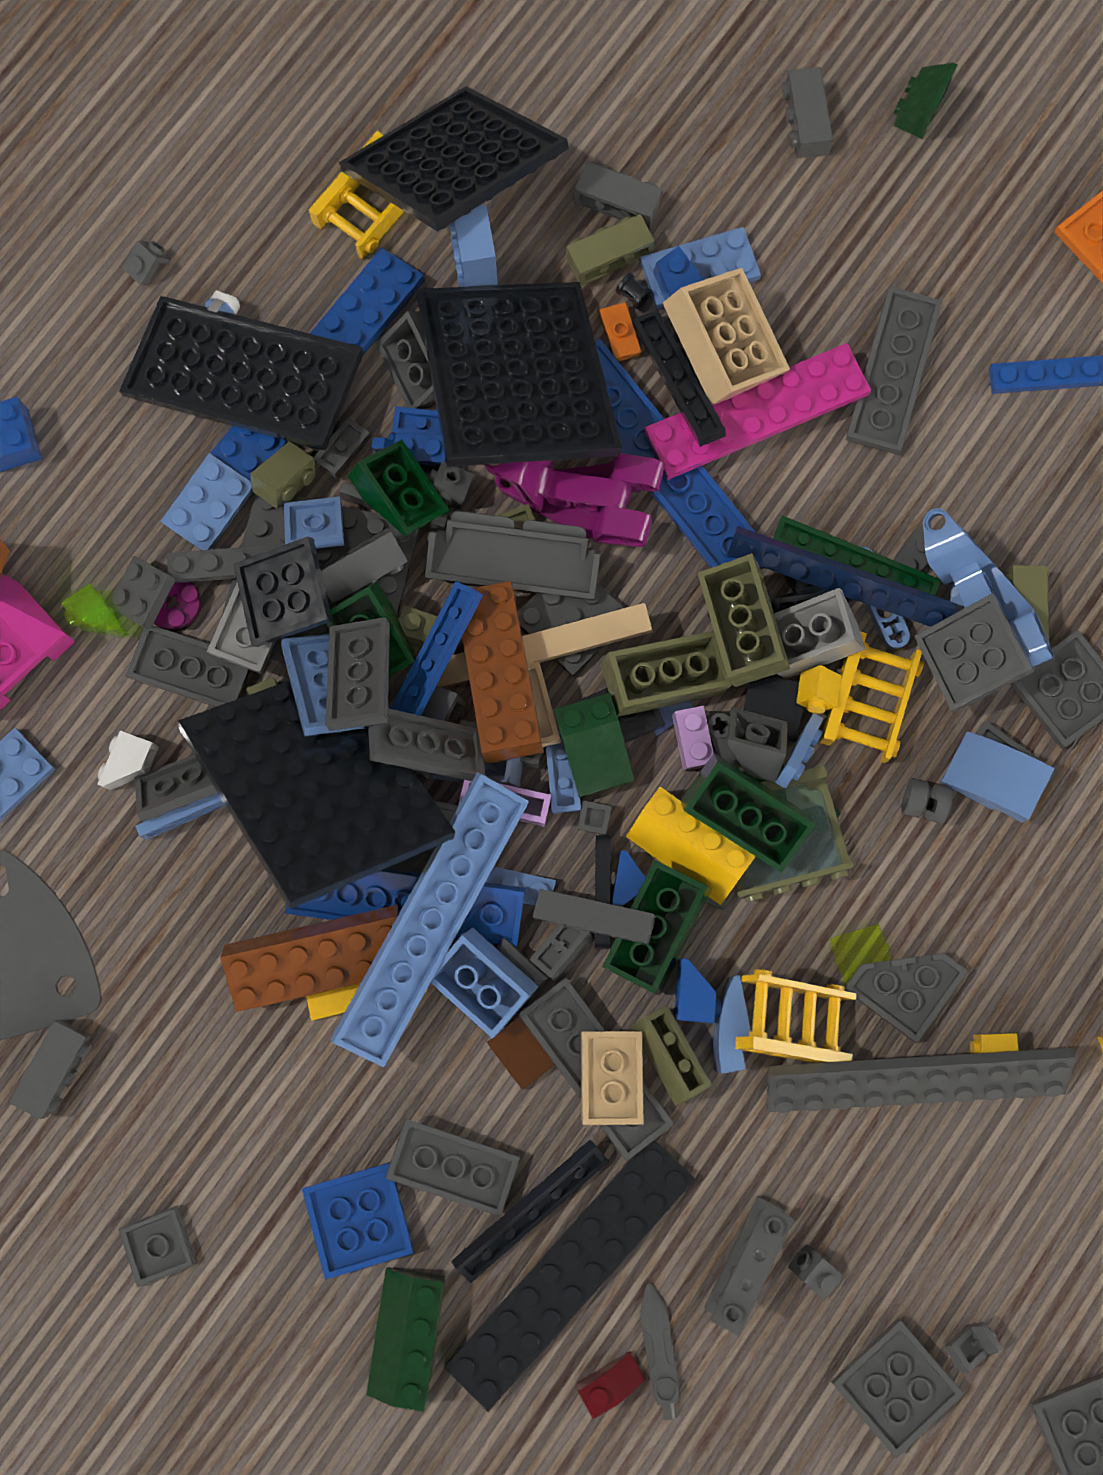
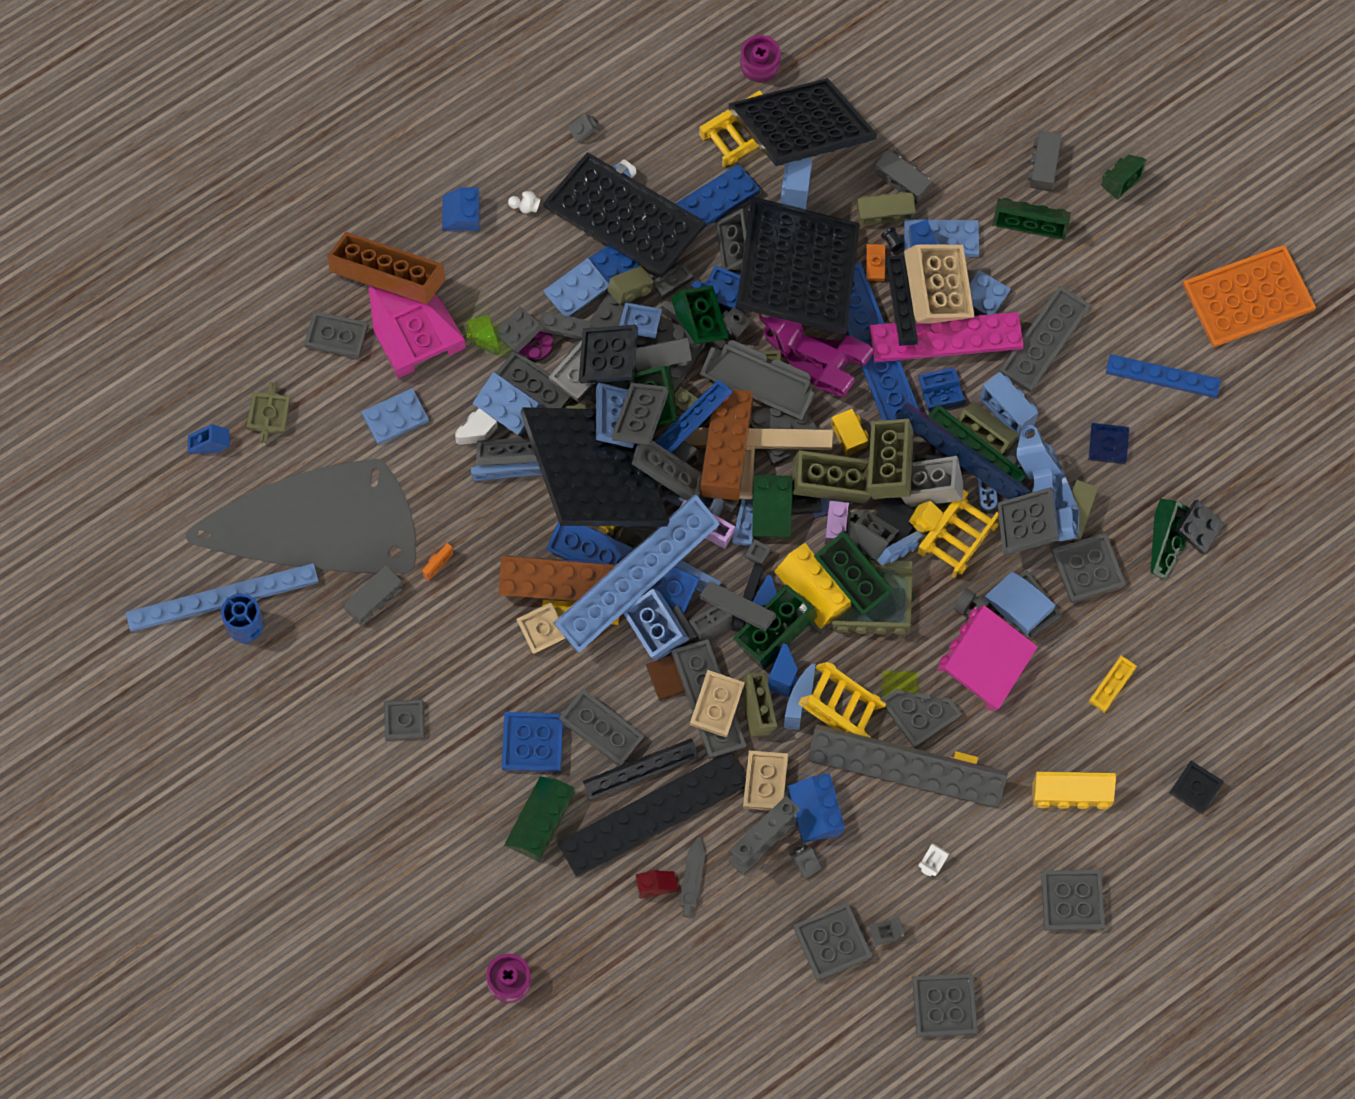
camera: 15 degrees right, 10 degrees down
(98, 400) = (527, 204): none -> white animal
(130, 984) = (437, 561): none -> orange plate
(152, 705) = (504, 402): none -> medium blue brick
(309, 1039) = (539, 628): none -> tan plate
(363, 85) = (760, 58): none -> magenta wheel
(666, 594) = (849, 432): none -> yellow brick
(719, 1169) = (765, 780): none -> tan plate
(773, 489) = (941, 388): none -> blue slope
(793, 328) = (987, 294): none -> medium blue plate
(808, 1189) = (818, 806): none -> blue slope
(818, 201) = (1031, 218): none -> dark green slope
(862, 527) = (988, 428): none -> olive brick
(881, 484) = (1008, 403): none -> medium blue brick
(979, 876) = (987, 656): none -> dark pink panel
(1002, 1211) = (933, 860): none -> white bracket
(1032, 494) = (1108, 443): none -> clear blue tile

